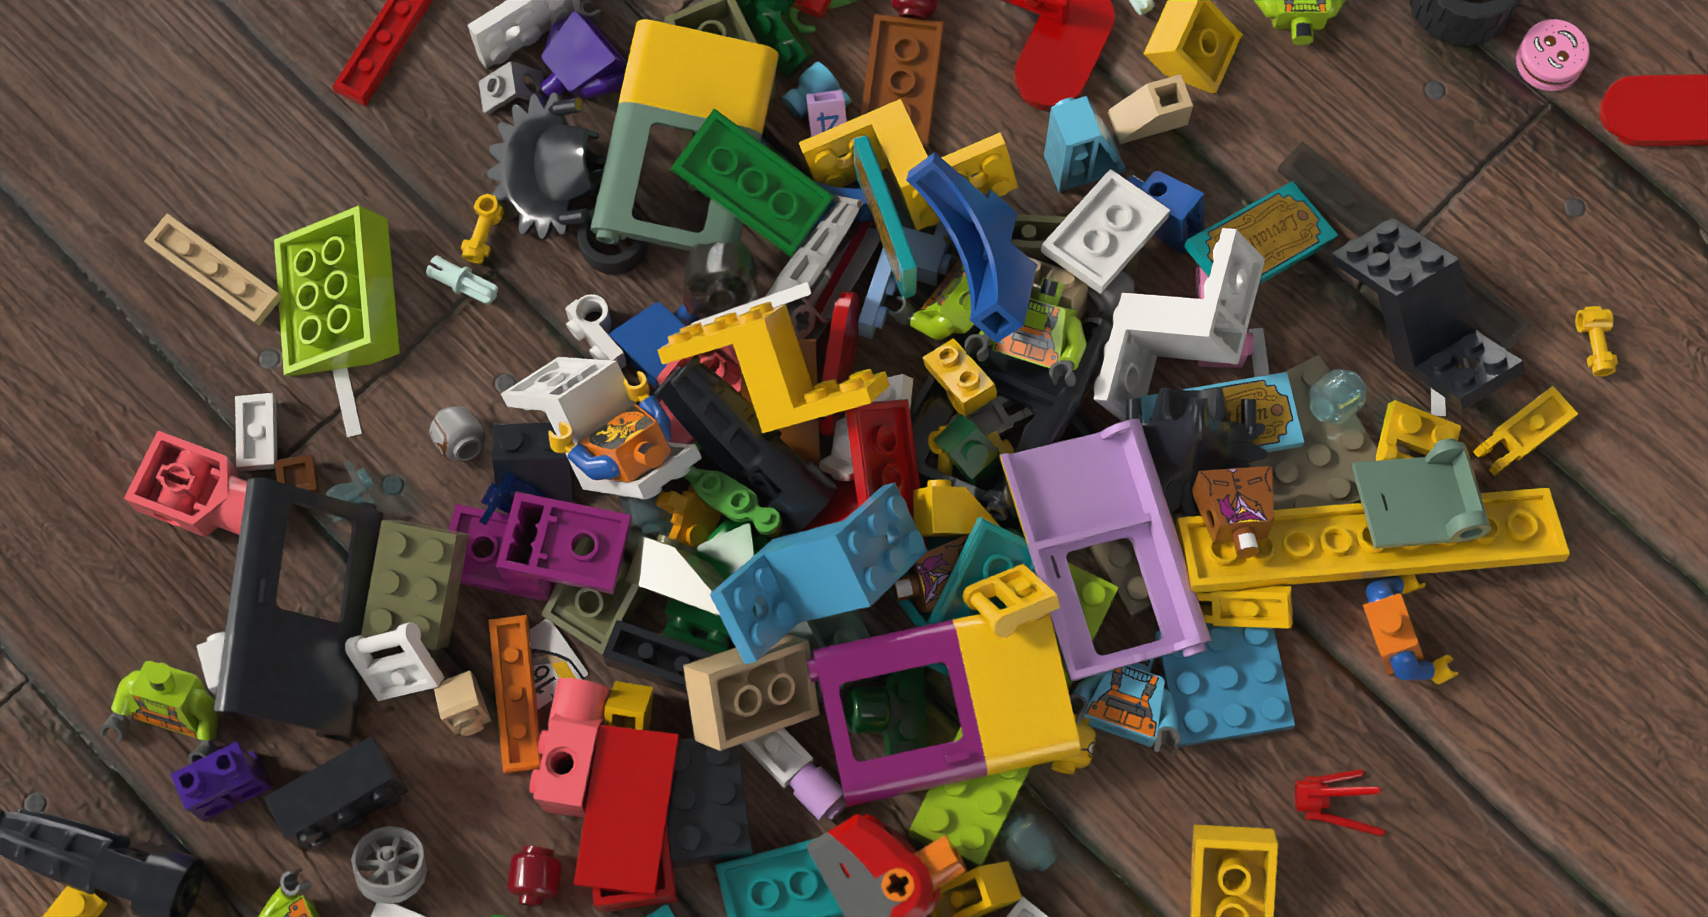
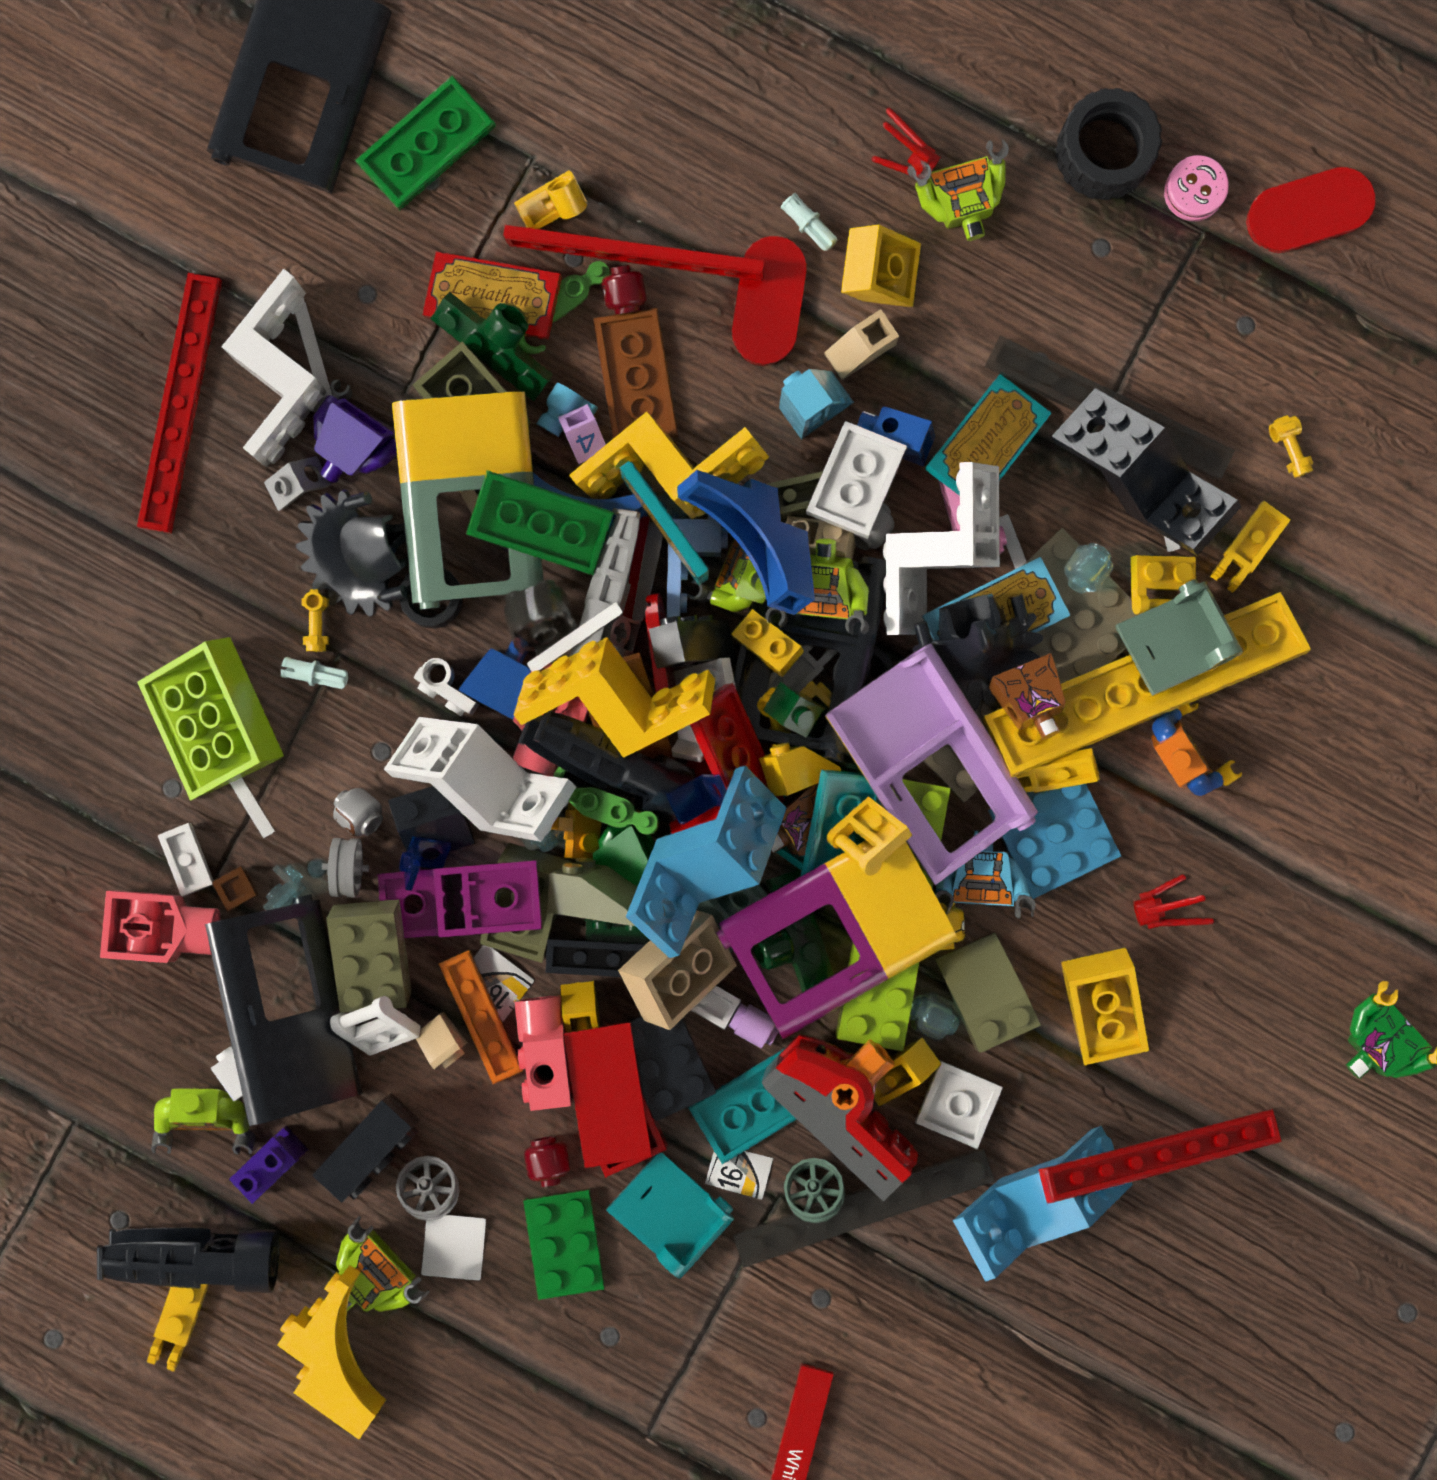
camera: 20 degrees left, 15 degrees up
(213, 269) = (94, 726): tan plate -> none
(422, 484) = (345, 867): none -> light grey wheel
(625, 444) = (509, 796): torso -> none
(829, 505) = (696, 797): none -> clear blue bracket
(868, 342) = (690, 641): none -> black brick
(1098, 836) = (987, 993): none -> olive slope

